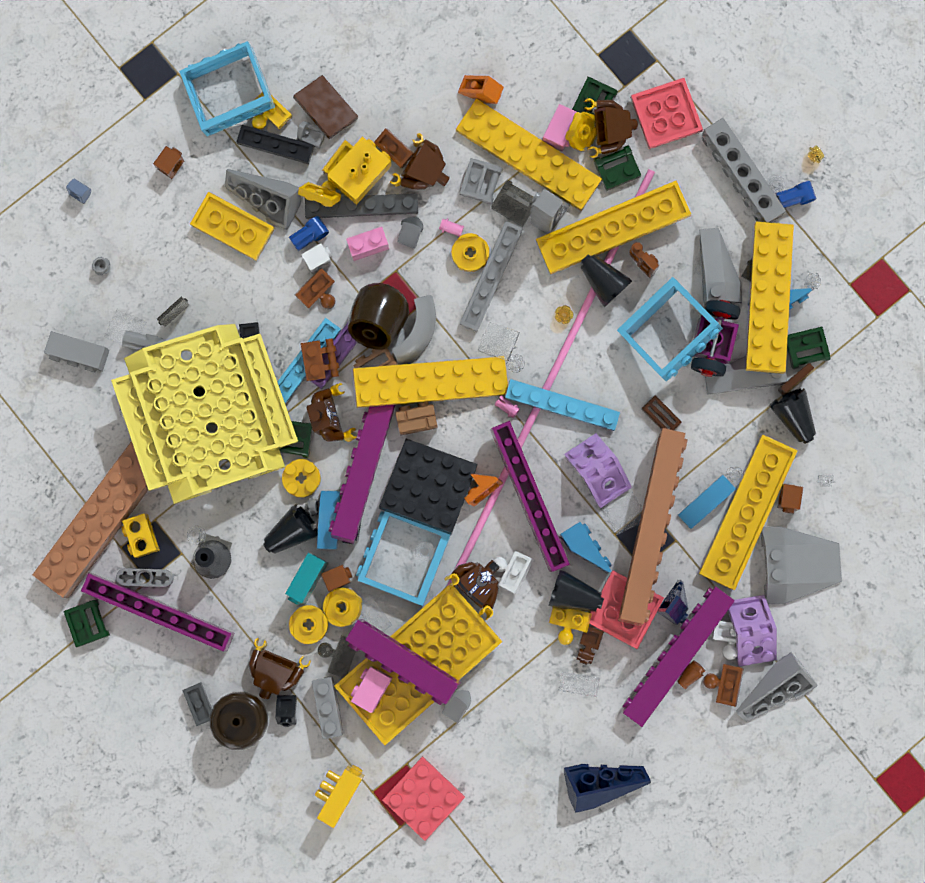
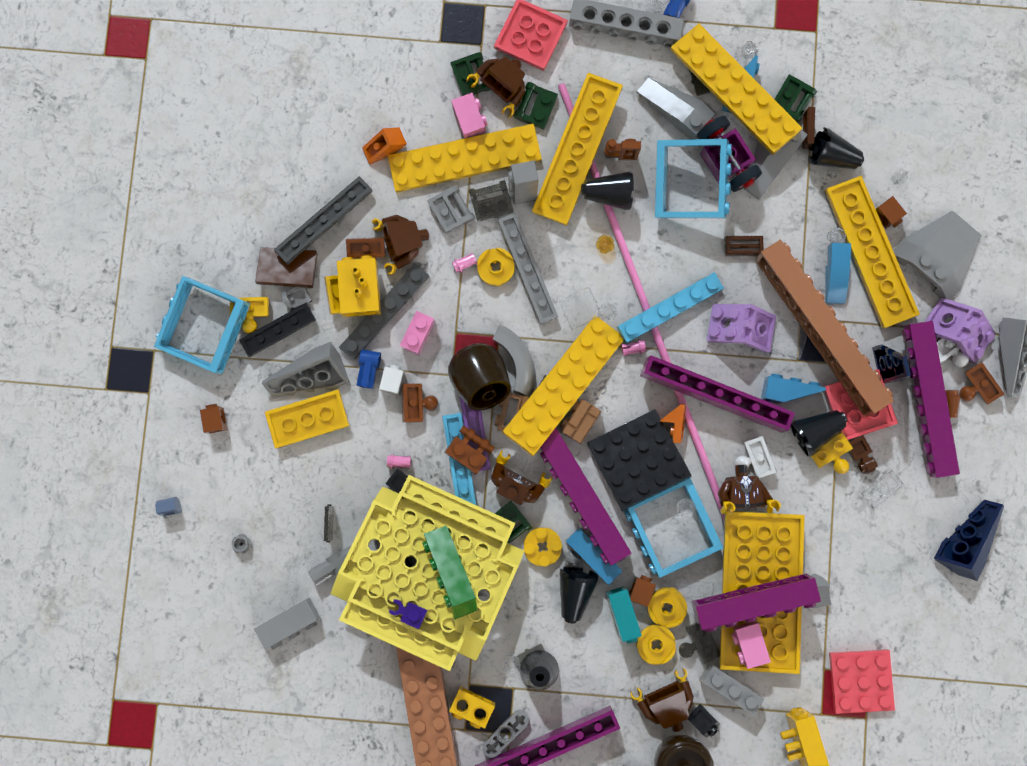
camera: 50 degrees left, 0 degrees up
(161, 425) = (411, 615): none -> dark purple plate
(216, 424) = (450, 572): none -> green wedge
(263, 318) = (398, 461): none -> bright pink pin
(323, 194) = (348, 331): yellow plate -> none
(384, 99) = (323, 220): none -> dark grey plate
(410, 231) = (439, 294): dark grey tile -> none
(581, 131) = (486, 103): yellow plate -> none

